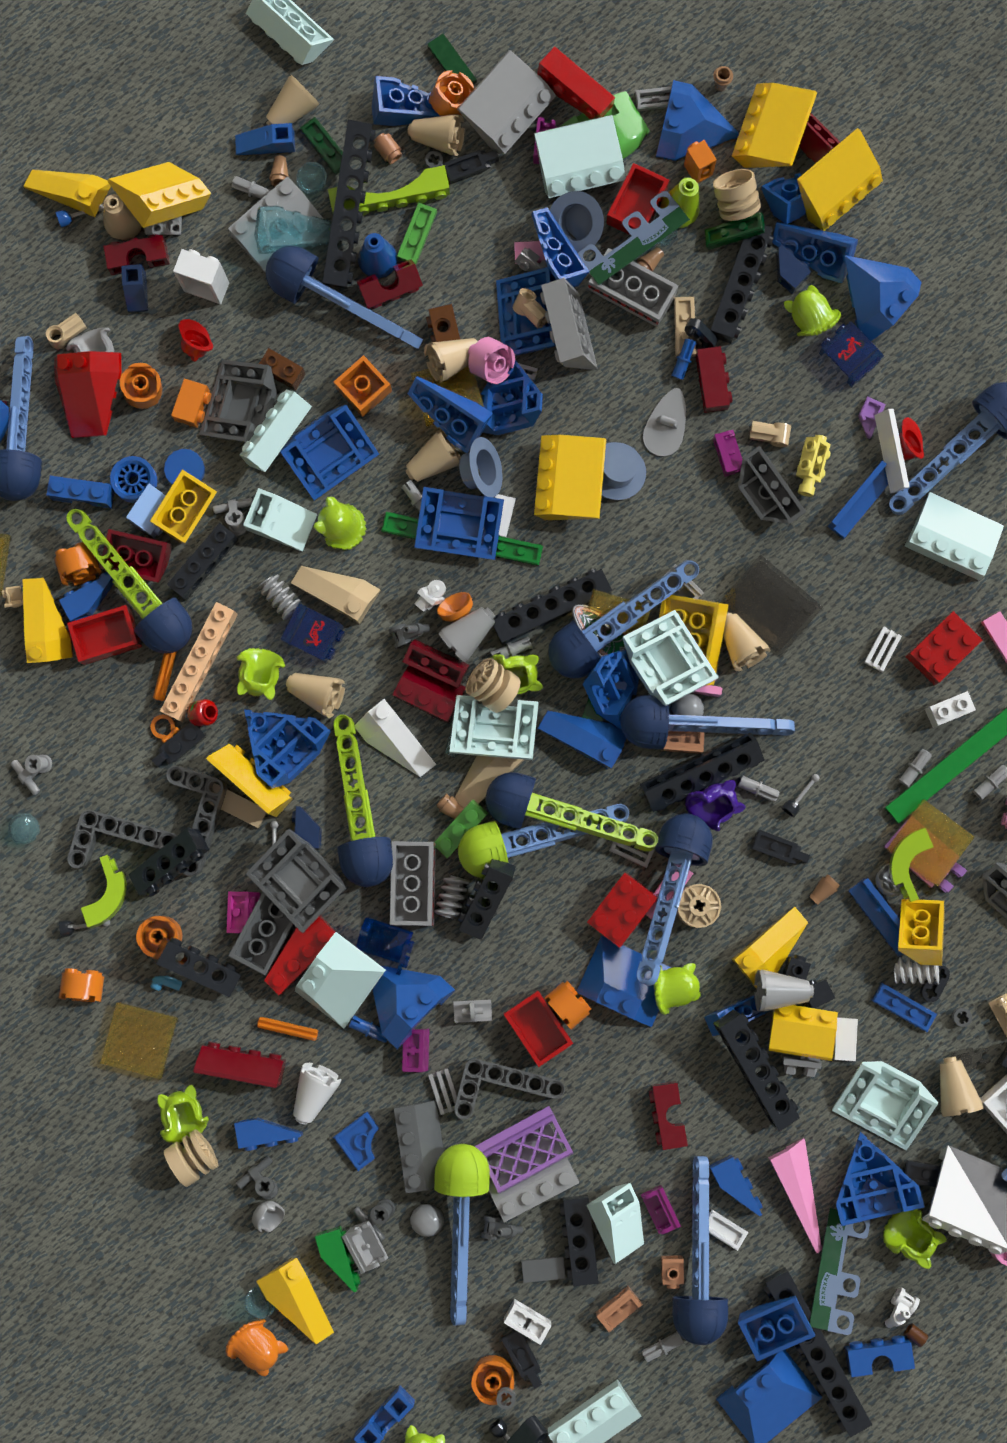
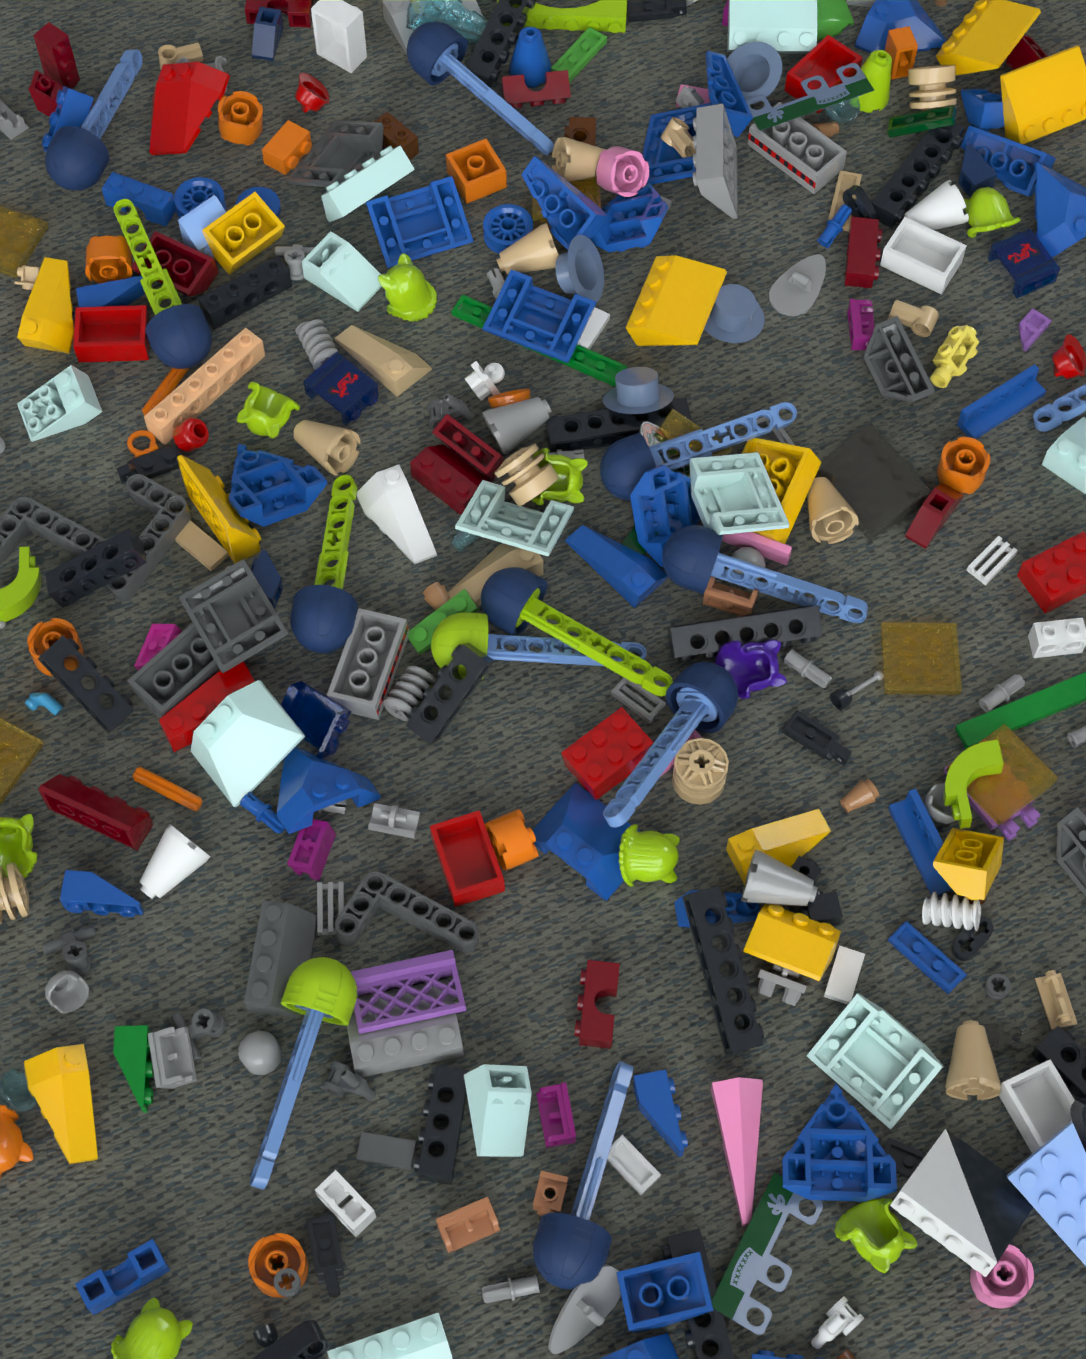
camera: 10 degrees right, 20 degrees down
(83, 712) = (60, 404): none -> light aqua slope
(357, 1139) = (206, 936): blue tile -> none
(398, 420) = (505, 226): none -> blue wheel
(561, 577) = (637, 392): none -> sand blue hose
(721, 1350) = (585, 1310): none -> light grey shield
(766, 322) = (940, 208): none -> white cone
(766, 371) = (923, 255): none -> white piece
(829, 621) = (933, 514): none -> dark red slope
(845, 755) = (920, 658): none -> clear yellow plate
(851, 564) = (963, 465): none -> orange brick
(891, 450) = (1047, 360): white tile -> none

